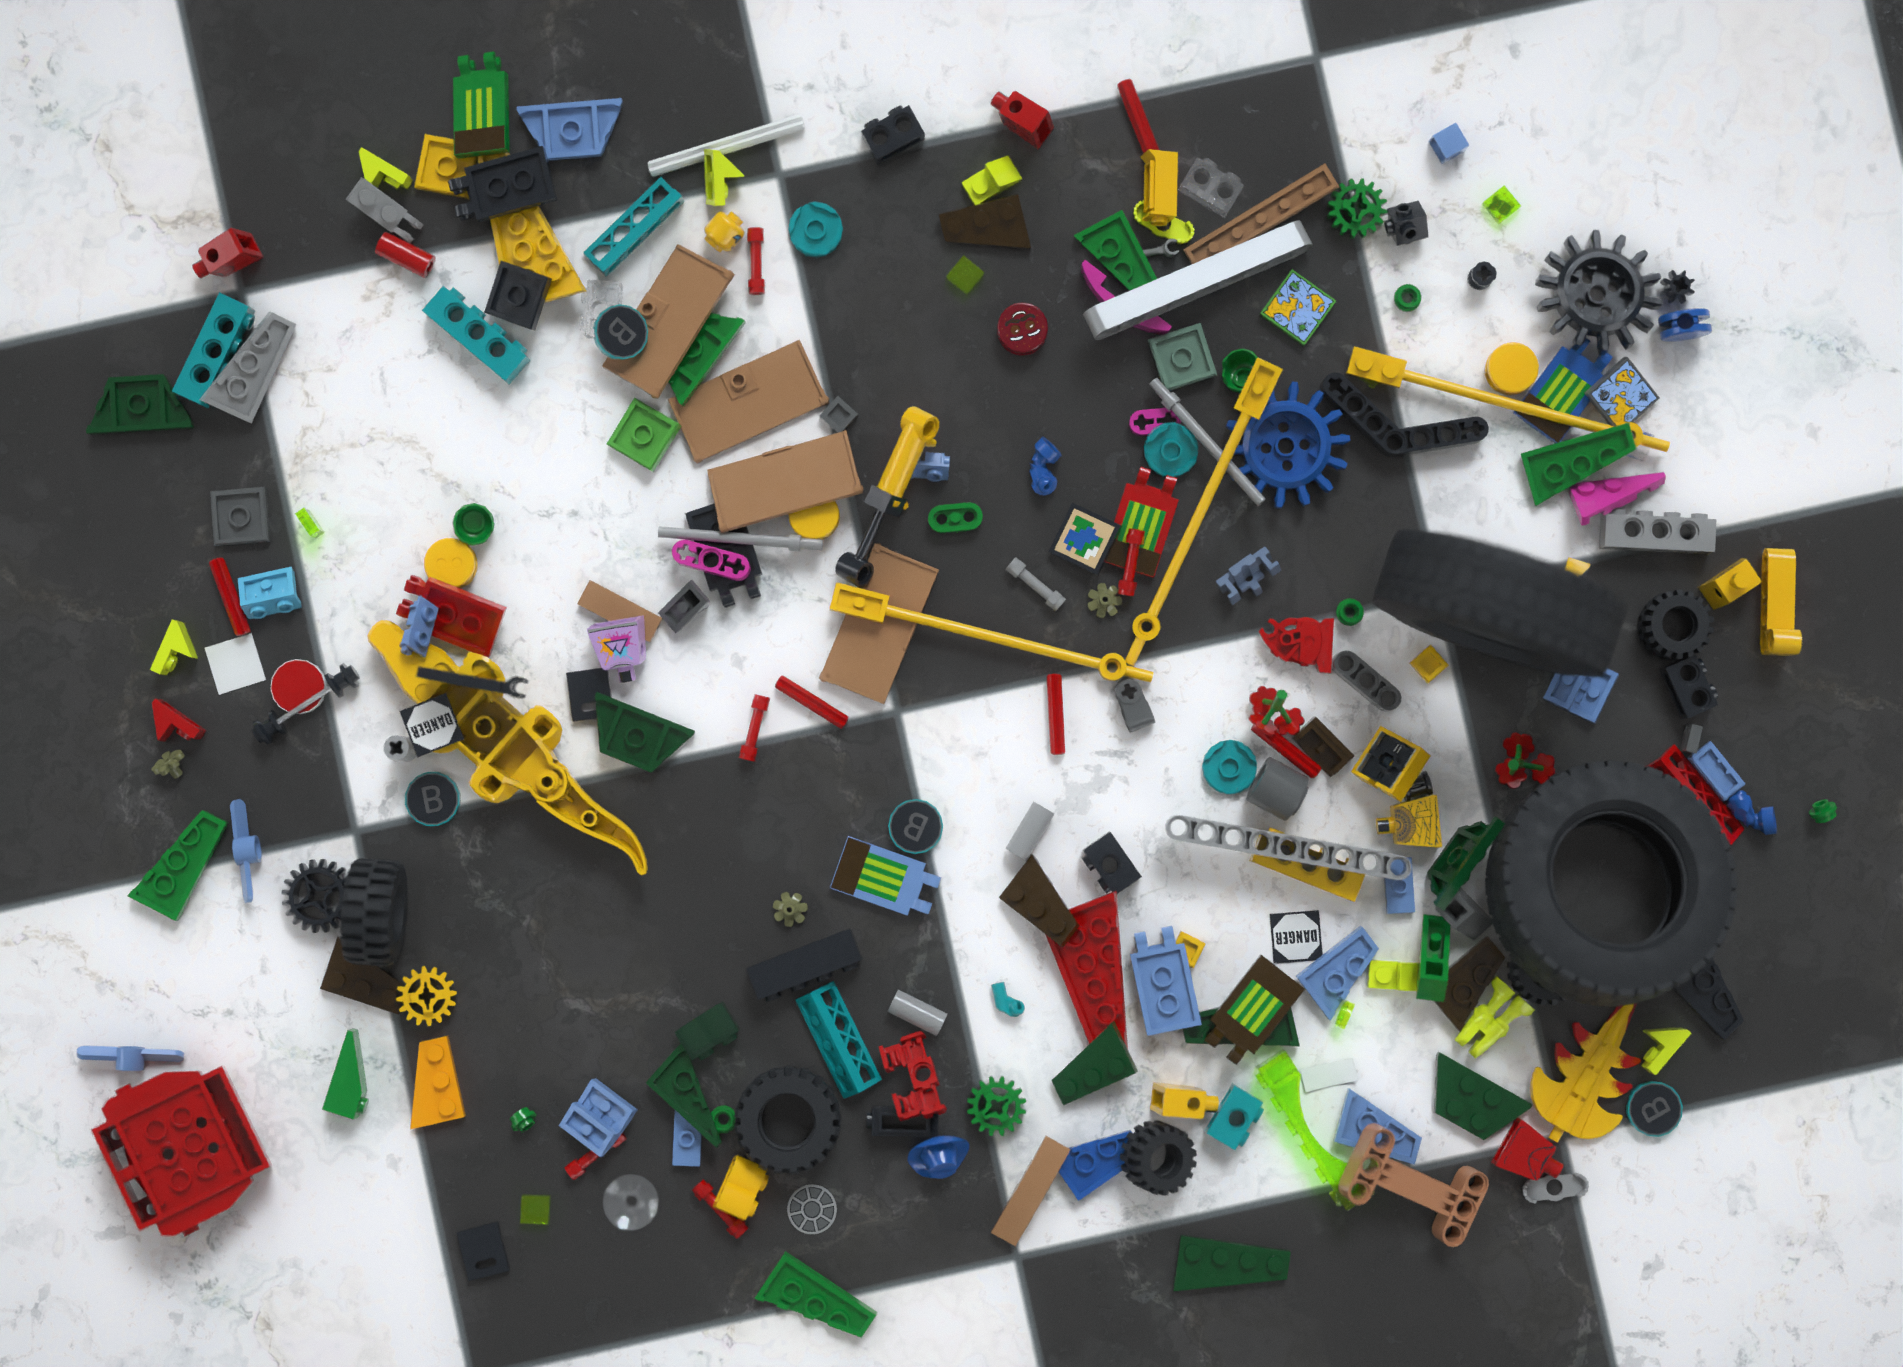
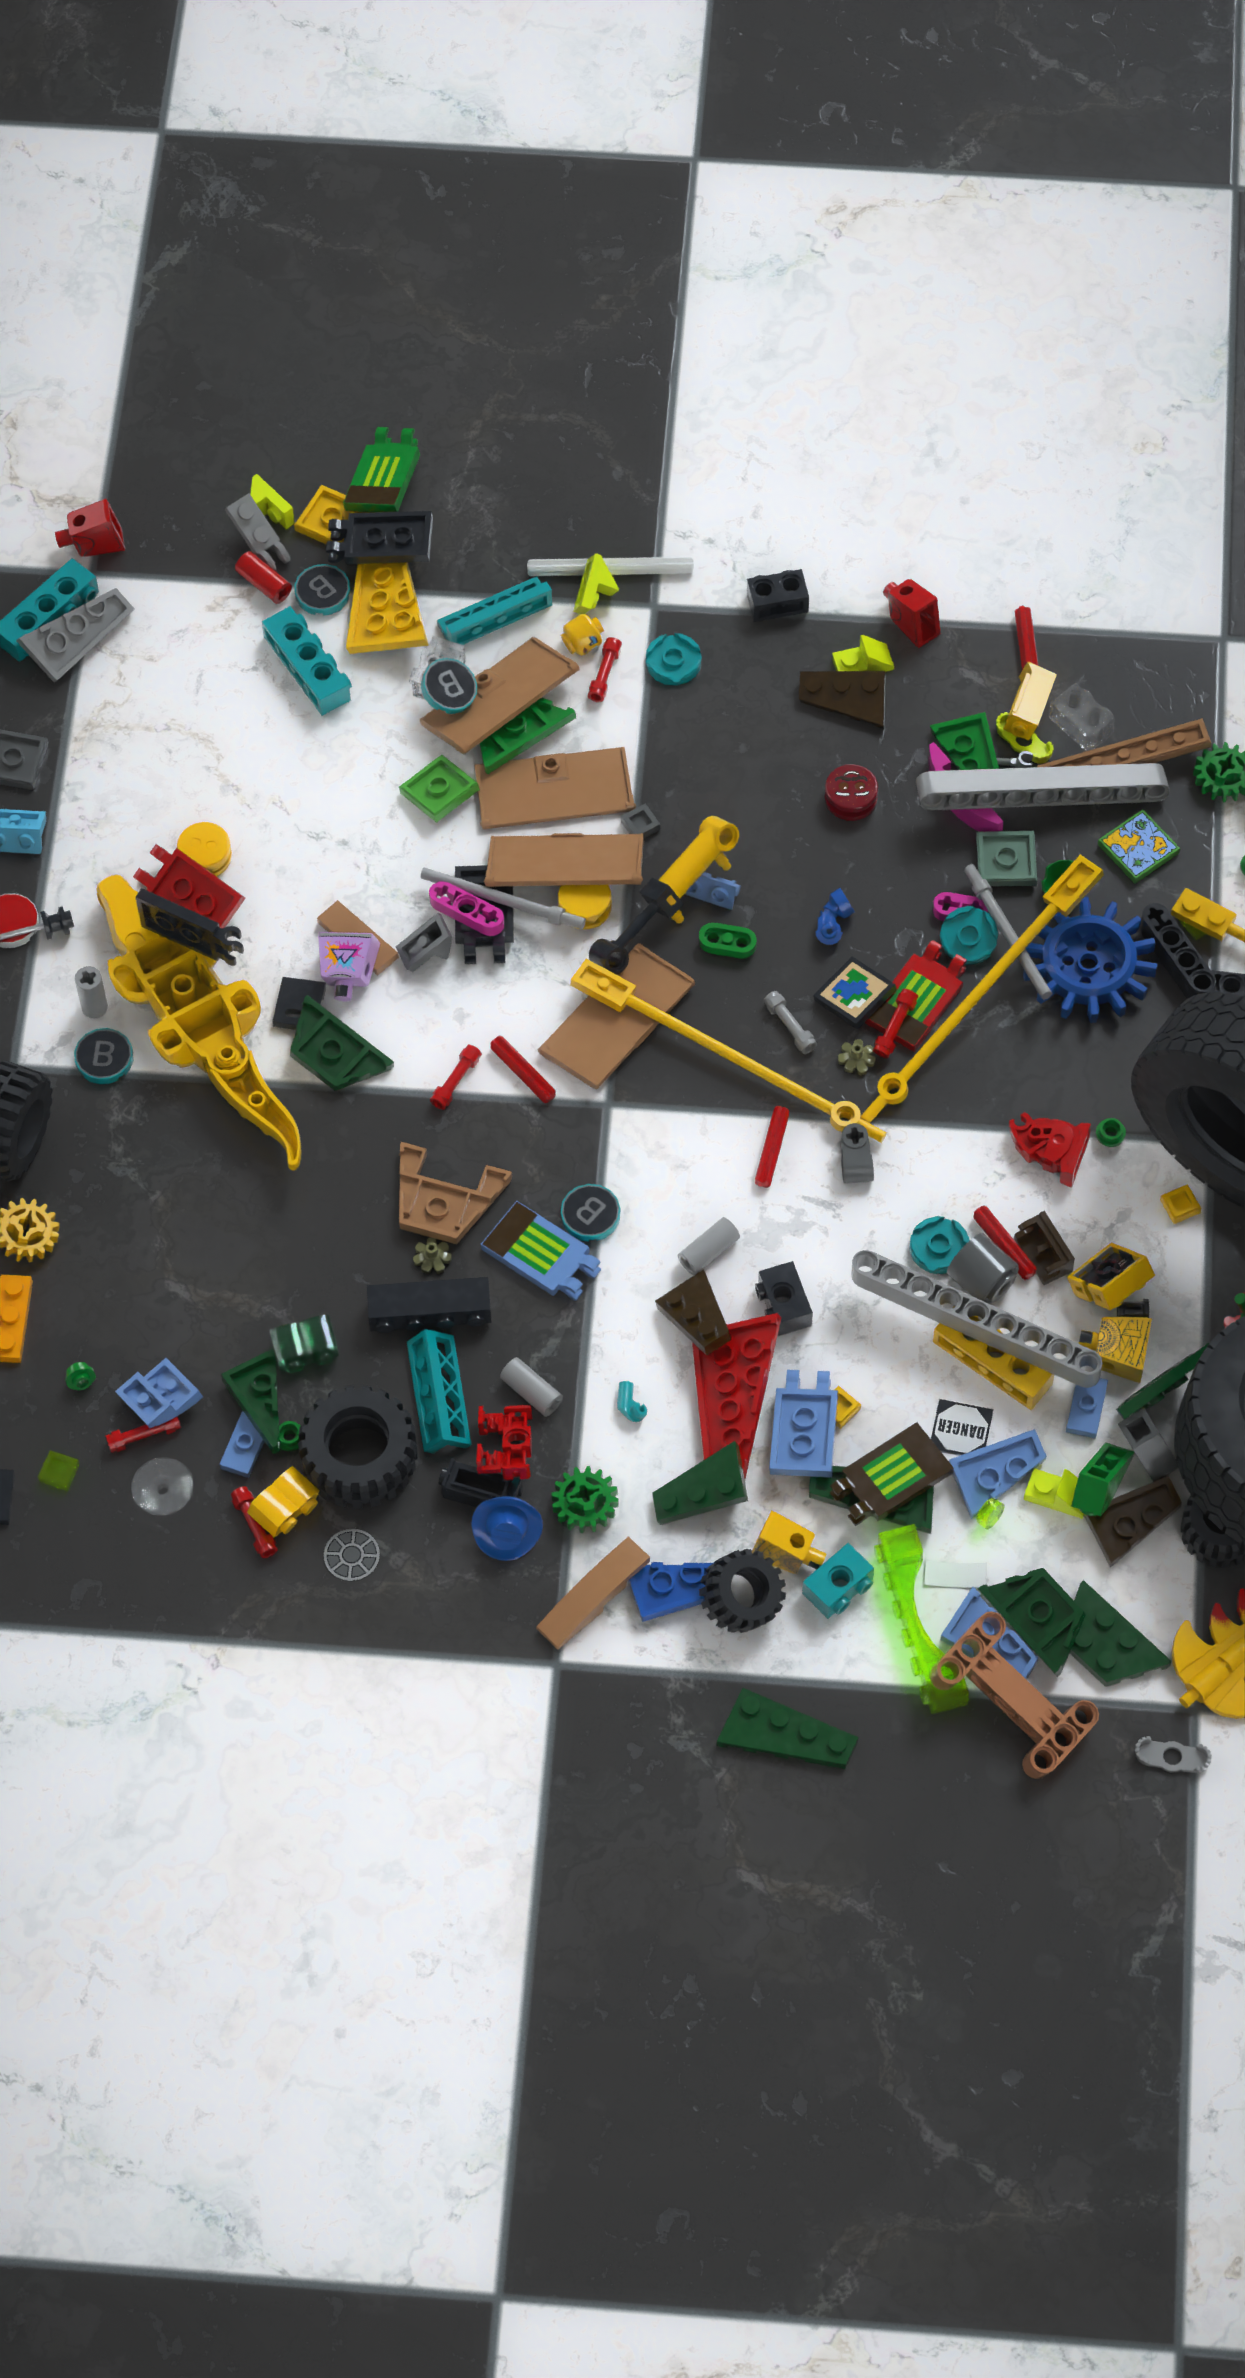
camera: 15 degrees right, 25 degrees down
(309, 522) = (79, 778): clear neon green tile -> none
(421, 624) = (155, 879): medium blue hinge -> none
(431, 725) = (131, 968): sticker -> none
(464, 249) = (322, 589): none -> black tile
(473, 524) = (240, 818): green hair -> none
(518, 295) = (360, 634): black tile -> none
(572, 128) = (467, 514): medium blue wing -> none
(781, 863) = (439, 1207): none -> medium nougat wing
(805, 1291) = (317, 1632): green wing -> none
(965, 275) = (809, 734): clear neon green tile -> none
(1244, 568) = (1013, 1062): sand blue piece -> none
(1267, 702) = (999, 1191): red plant -> none
(1378, 686) = (1109, 1210): dark grey beam -> none
(1411, 1097) = (1039, 1614): none -> dark green wing
(1484, 1022) = (1145, 1569): neon yellow piece -> none
(1526, 1152) = (1150, 1706): red torso -> none

